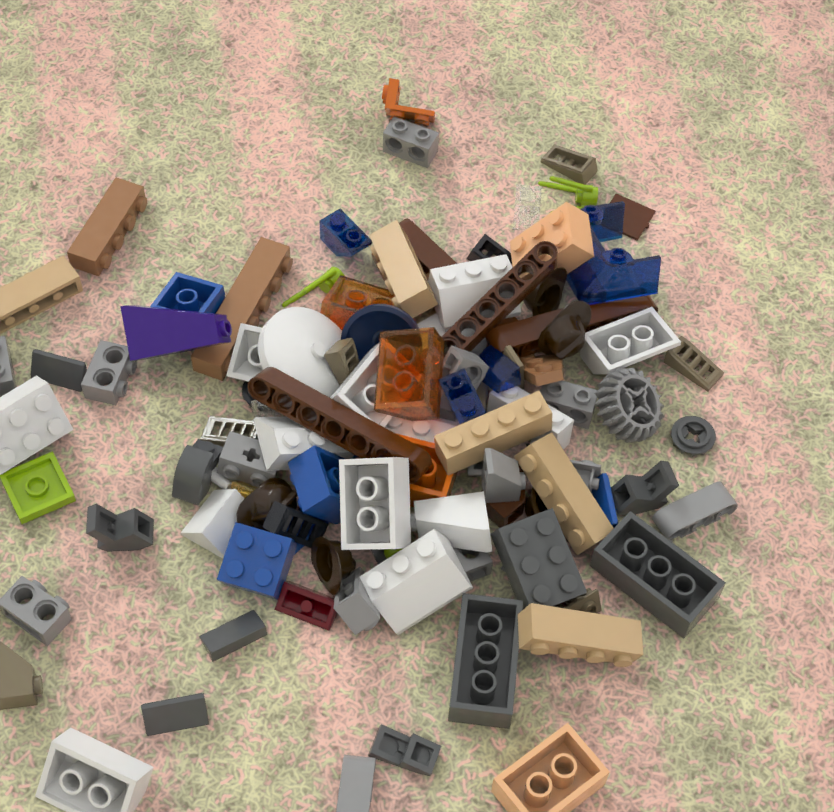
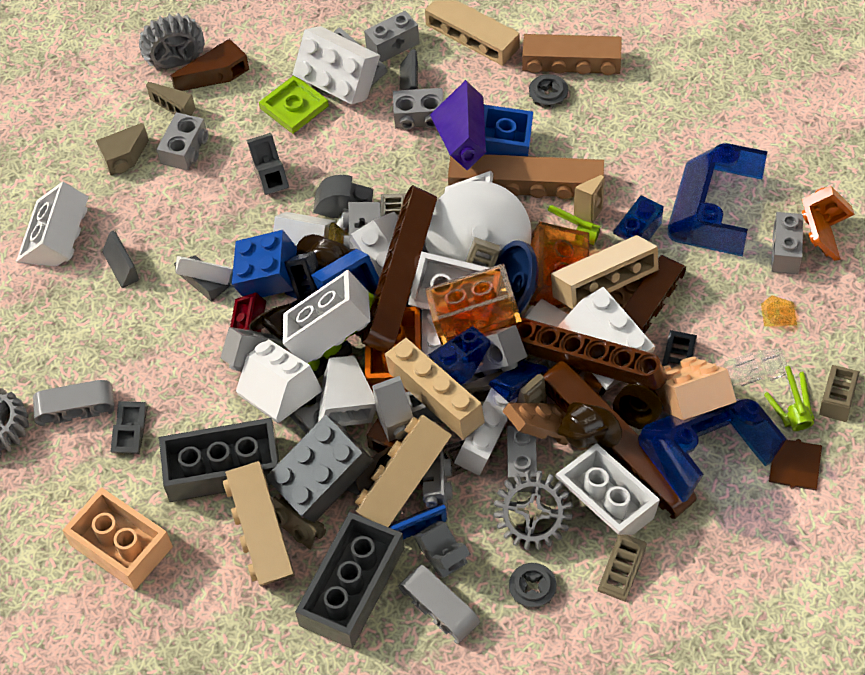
camera: 80 degrees right, 0 degrees up
(139, 252) = (542, 83): none -> dark grey gear
(232, 625) = (203, 270): none -> white slope
(306, 260) = (589, 199): none -> tan slope
(334, 186) = (700, 222): none -> clear blue windscreen
(473, 177) = (778, 312): none -> clear yellow slope

